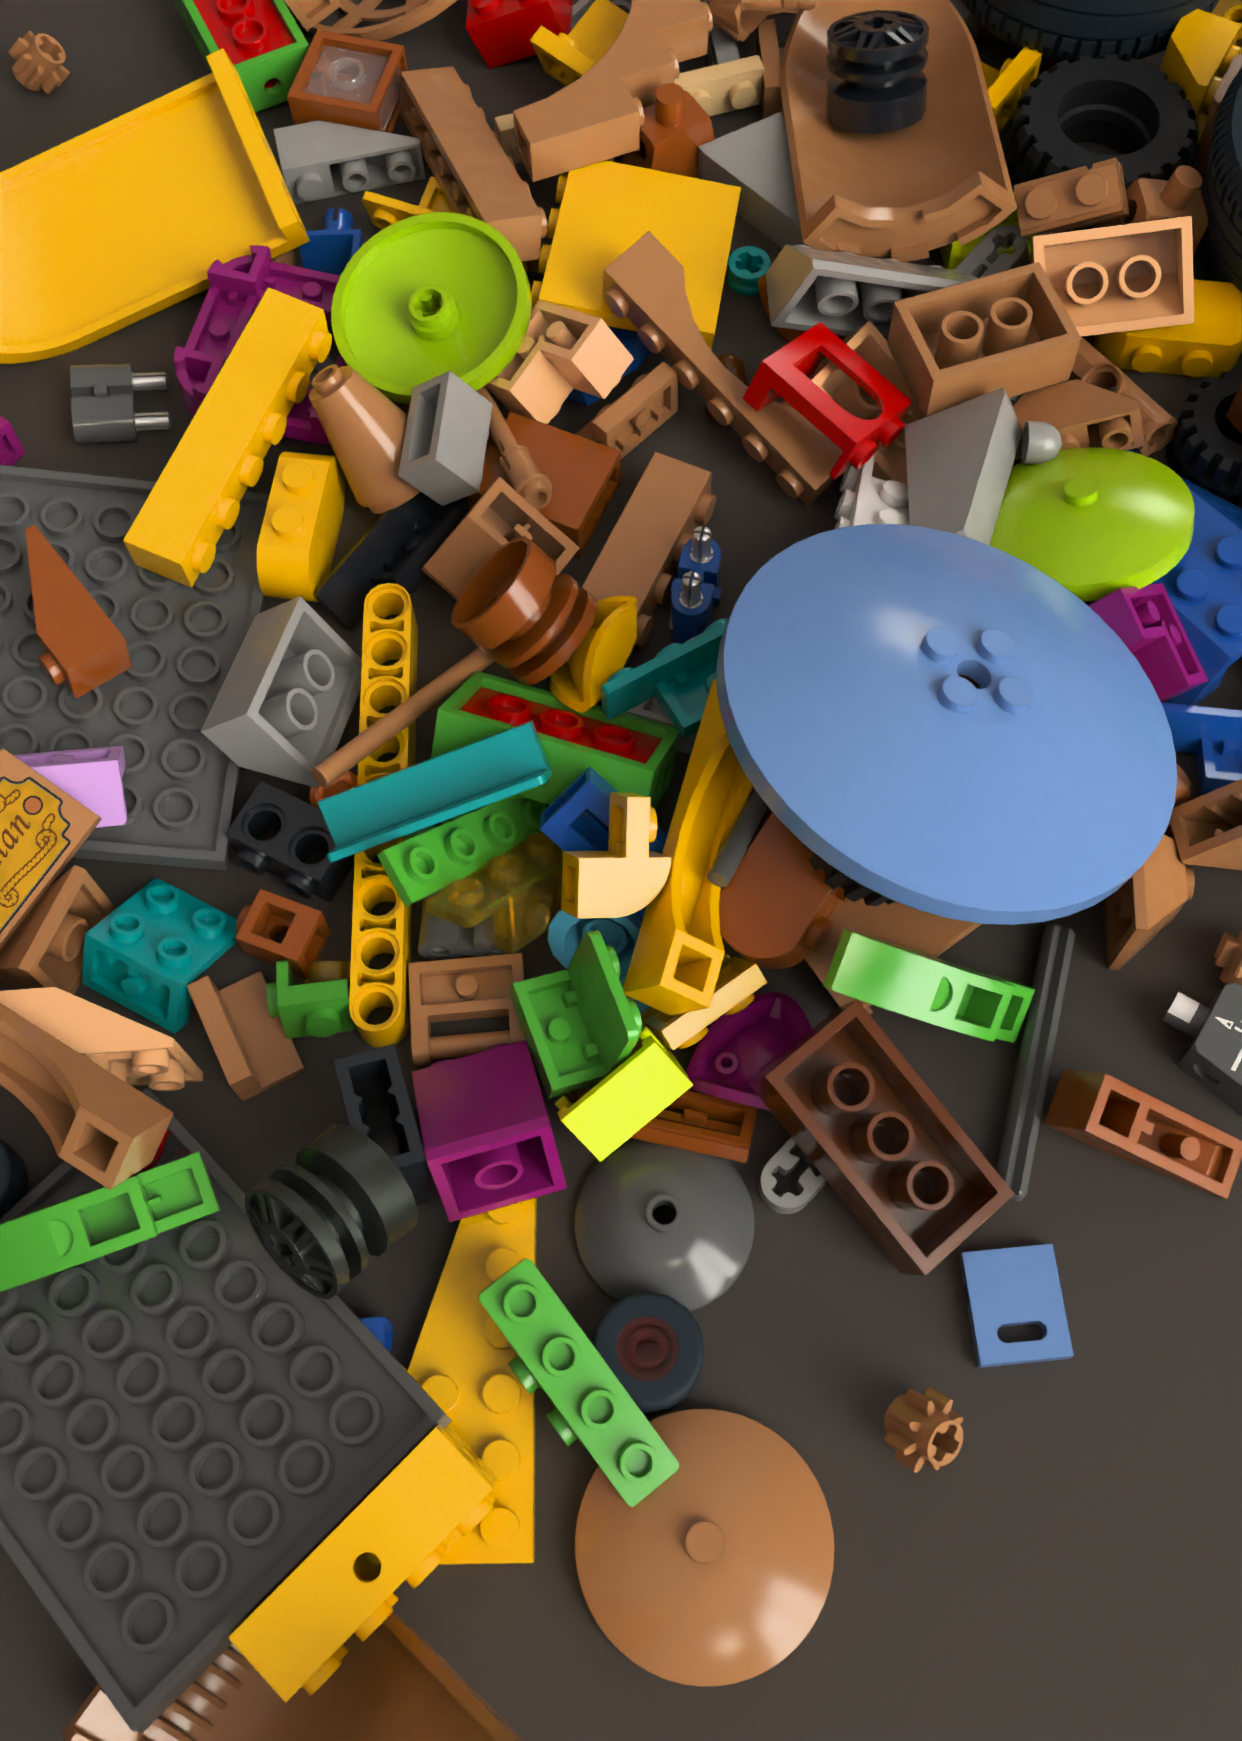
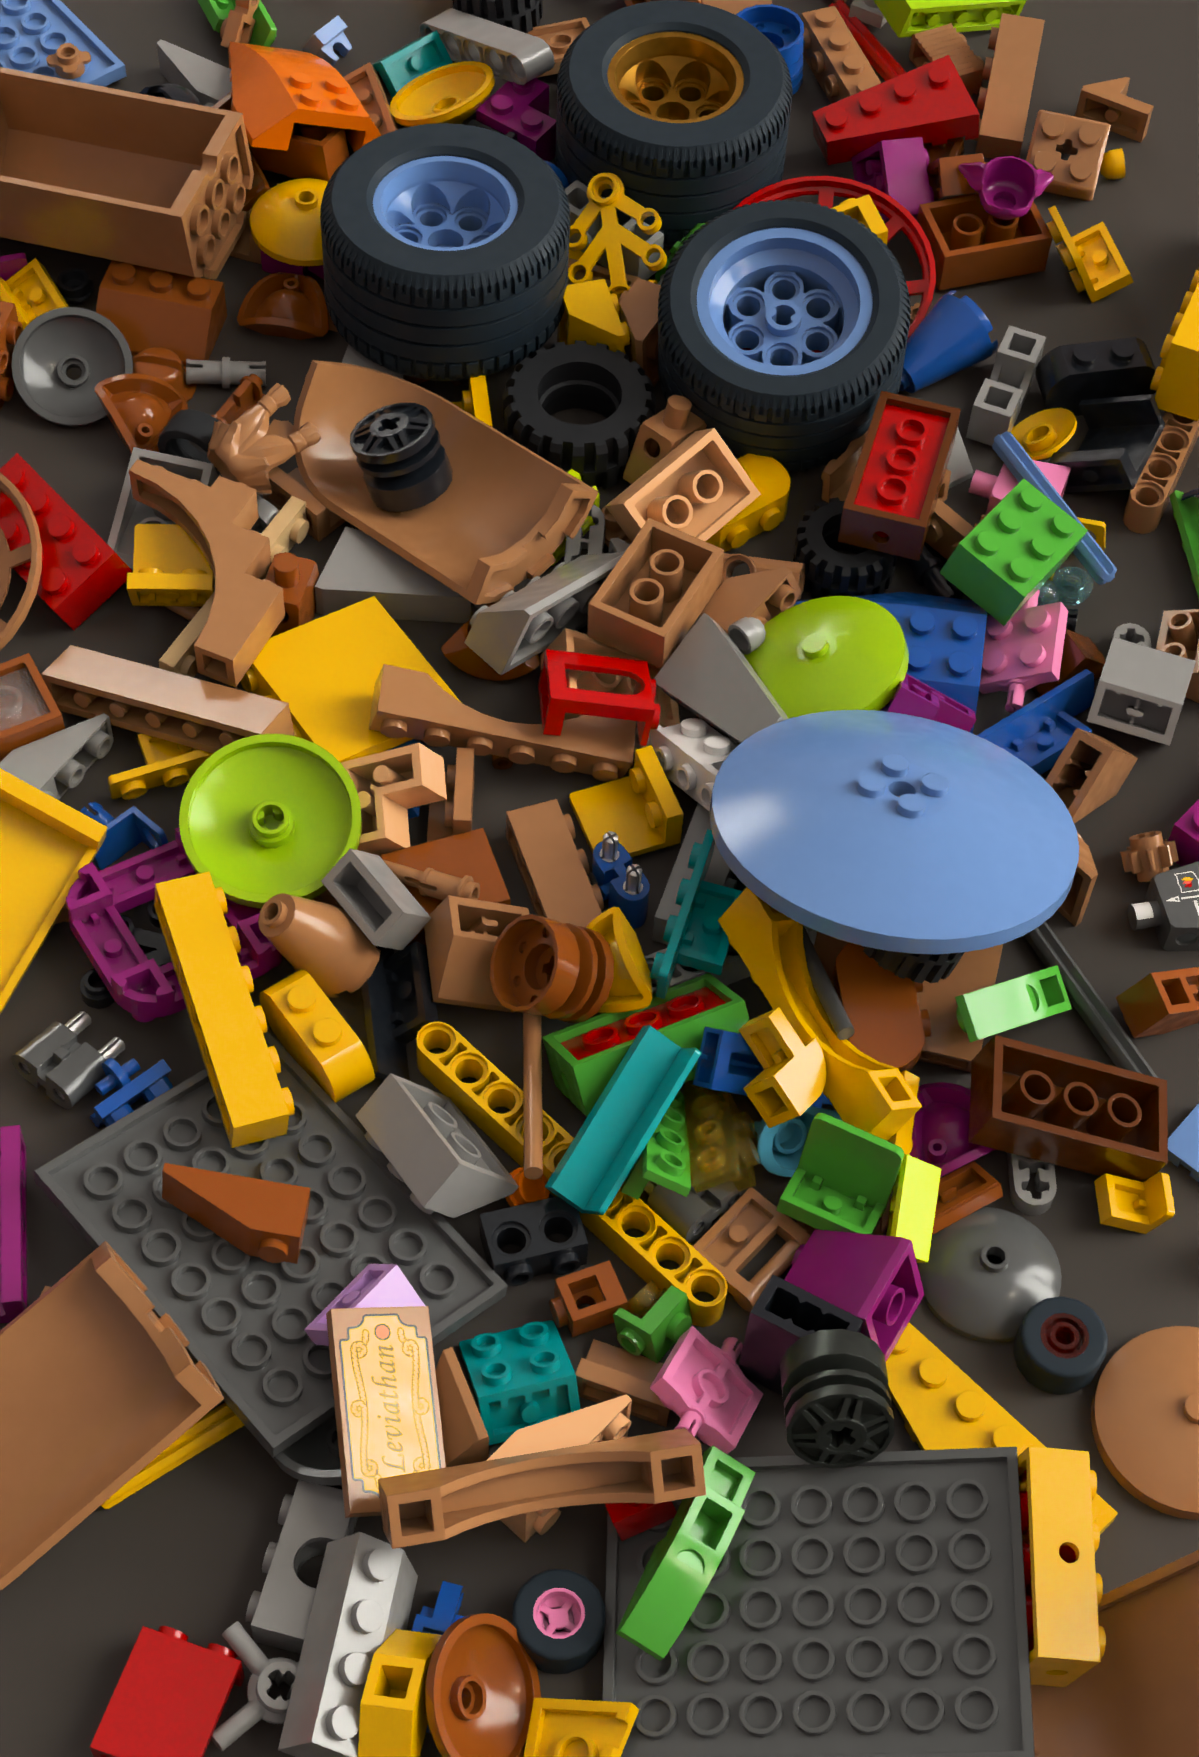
camera: 50 degrees left, 10 degrees down
(122, 455) = (118, 1105): none -> blue hips
(267, 1099) = (707, 1389): none -> bright pink plate
(577, 1381) = (1048, 1388): bright green bracket -> none
(740, 278) = (430, 640): teal bush -> none
(767, 522) = (634, 807): none -> yellow bracket
(868, 1282) = (1134, 1203): none -> yellow bracket
(1071, 199) = (617, 461): medium nougat brick -> none

